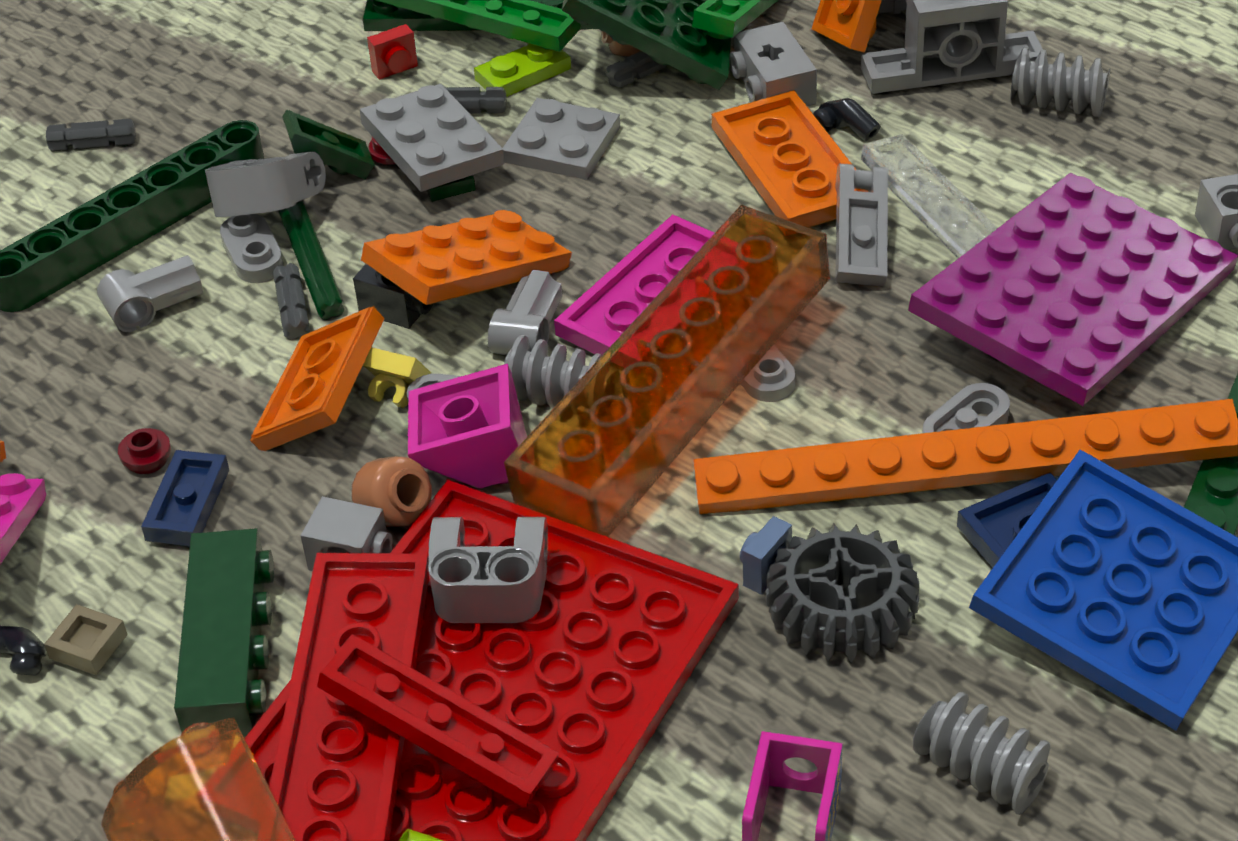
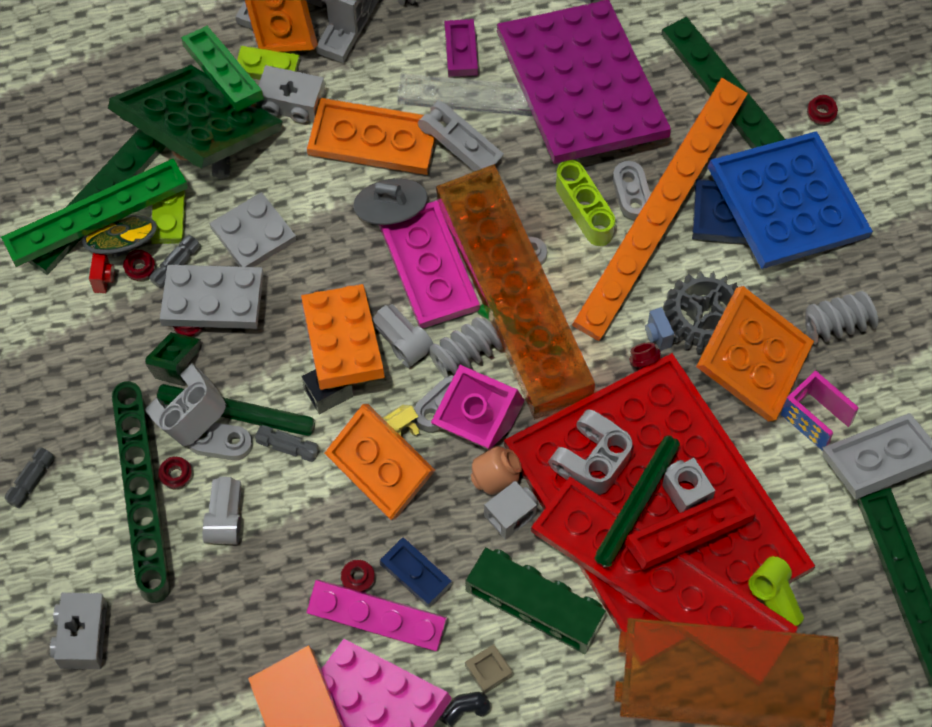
camera: 60 degrees left, 20 degrees up
(98, 495) = (377, 615): none -> dark pink plate
(179, 231) = (171, 464): none -> dark red plate
(432, 72) = (137, 257): none -> dark red plate
(444, 639) = (637, 501): none -> dark green axle
(451, 38) = (120, 236): none -> shield
(517, 687) = (690, 472): none -> light grey brick
(697, 210) = (390, 201): none -> dark grey shield
(711, 559) = (644, 355): none -> dark red plate
(808, 35) = (255, 59): none -> lime plate
(815, 663) = (755, 354): none -> orange plate
(847, 113) = (359, 84): black arm -> none
(892, 380) = (585, 190): none -> lime beam
(1002, 167) = (461, 48): none -> magenta plate

